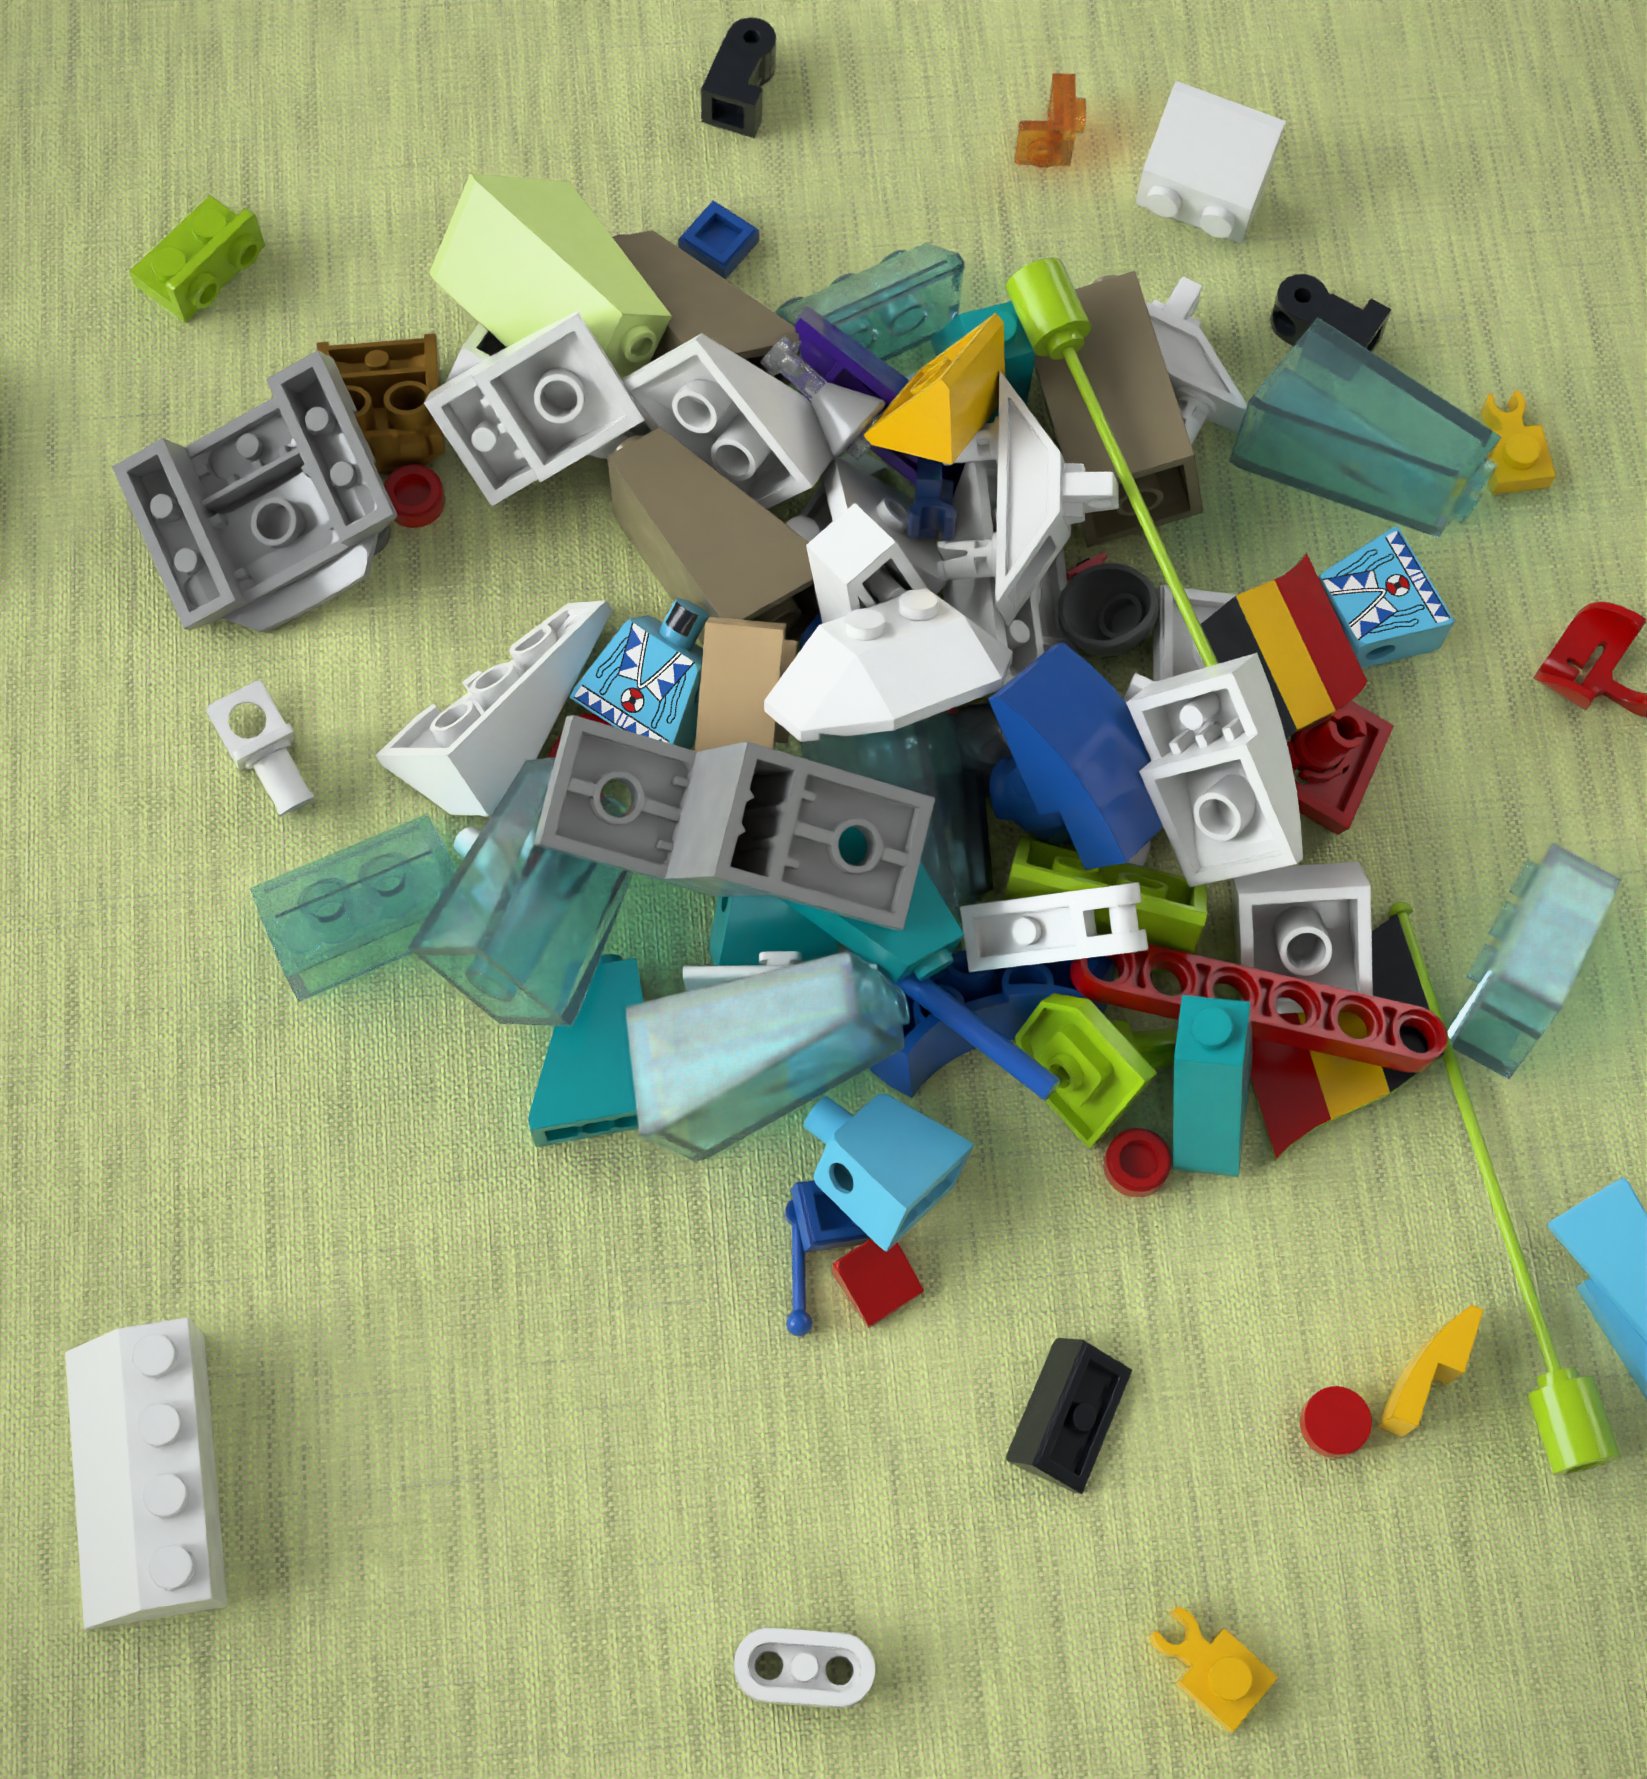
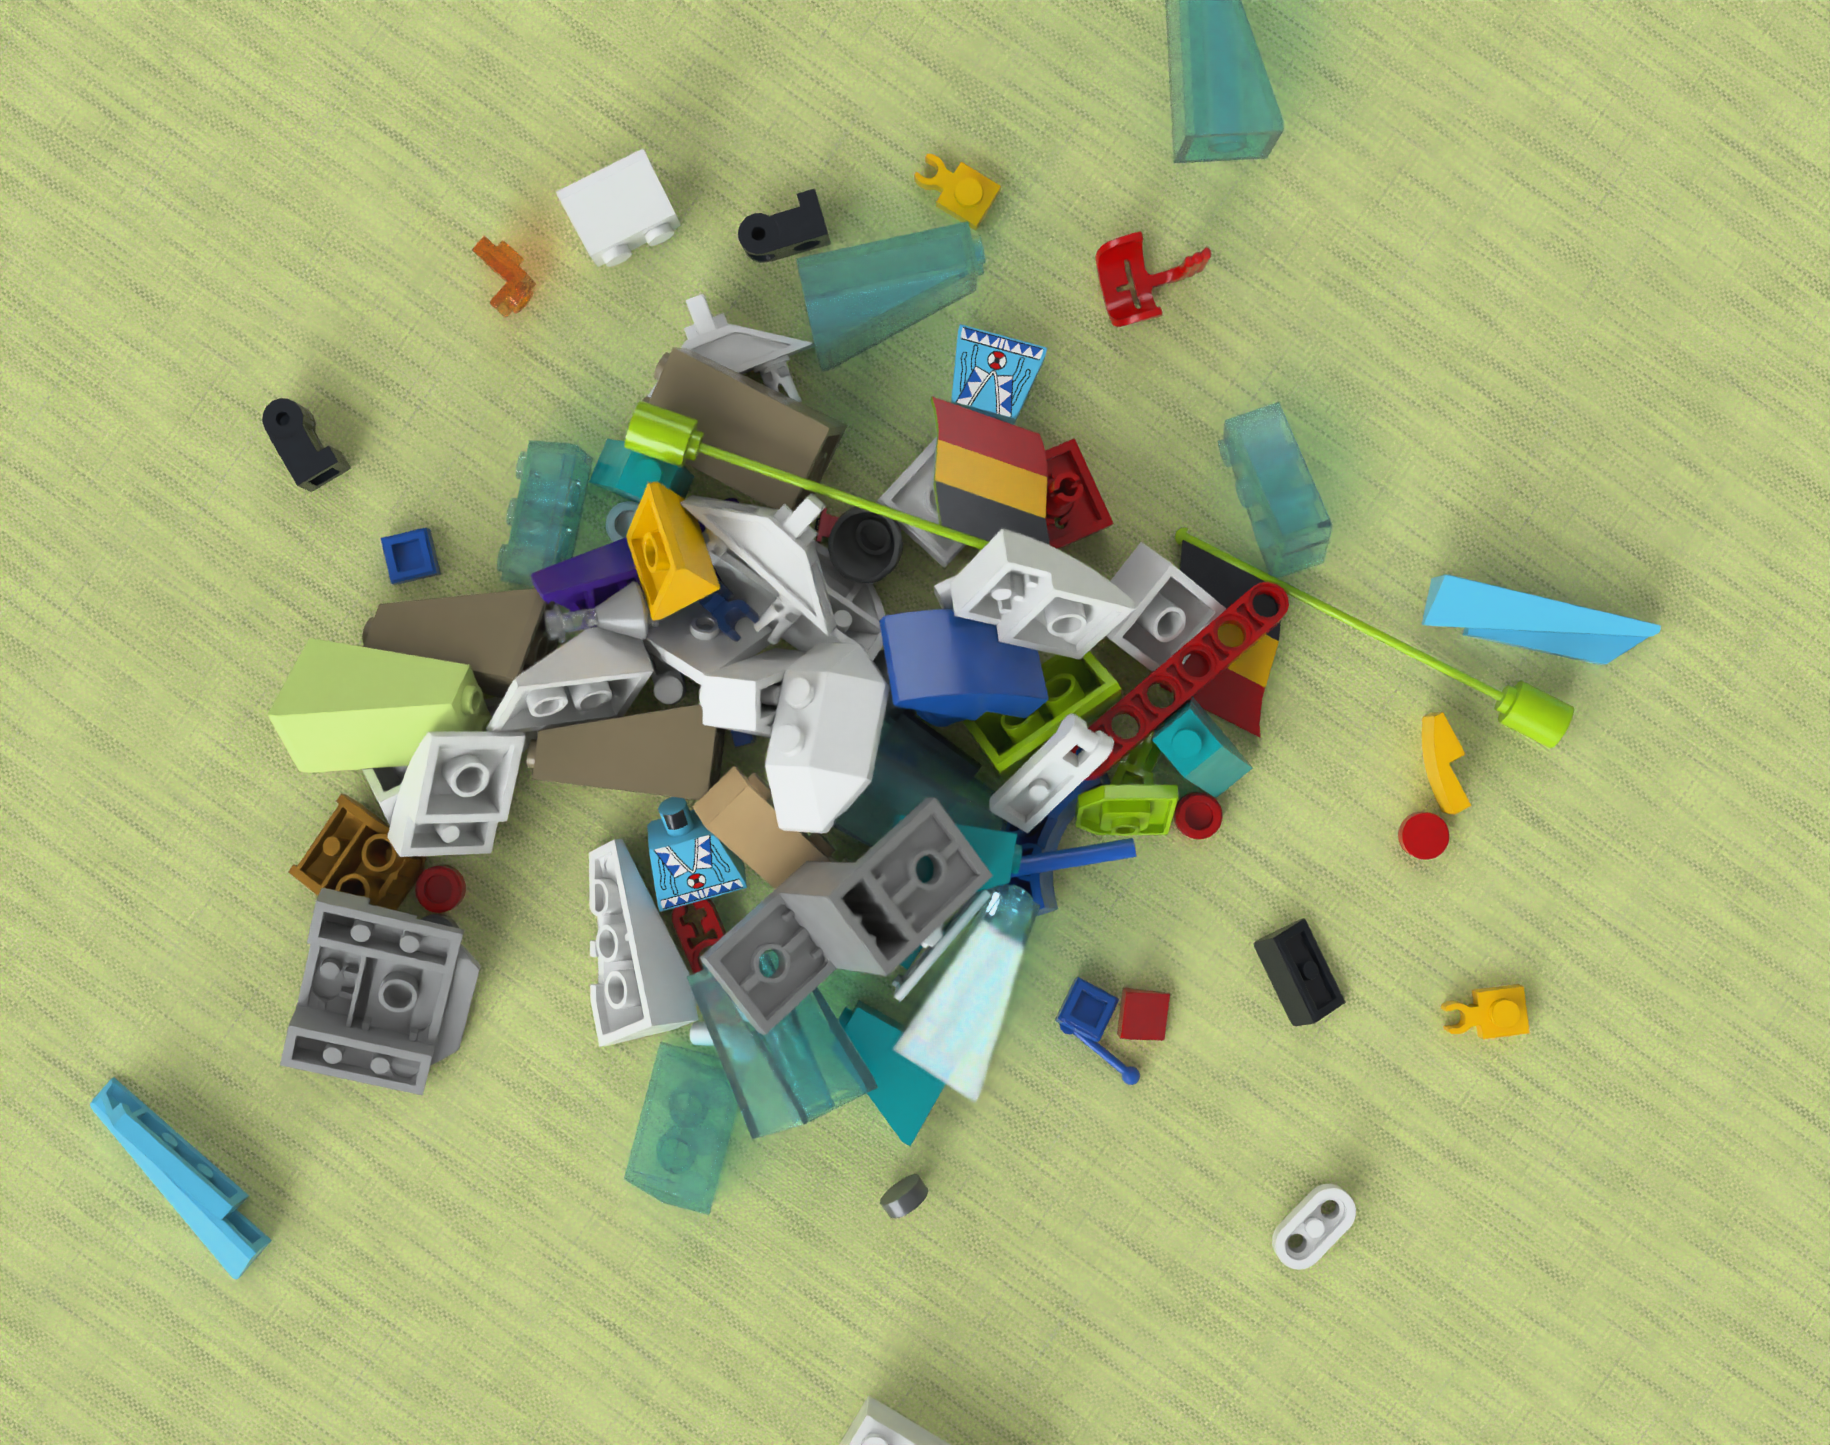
camera: 50 degrees left, 20 degrees up
(199, 258) = (160, 892): lime bracket -> none
(267, 751) = (543, 1108): white bracket -> none
(465, 1181) = (904, 1196): none -> dark grey tile
(885, 1163) = (1089, 965): medium azure torso -> none

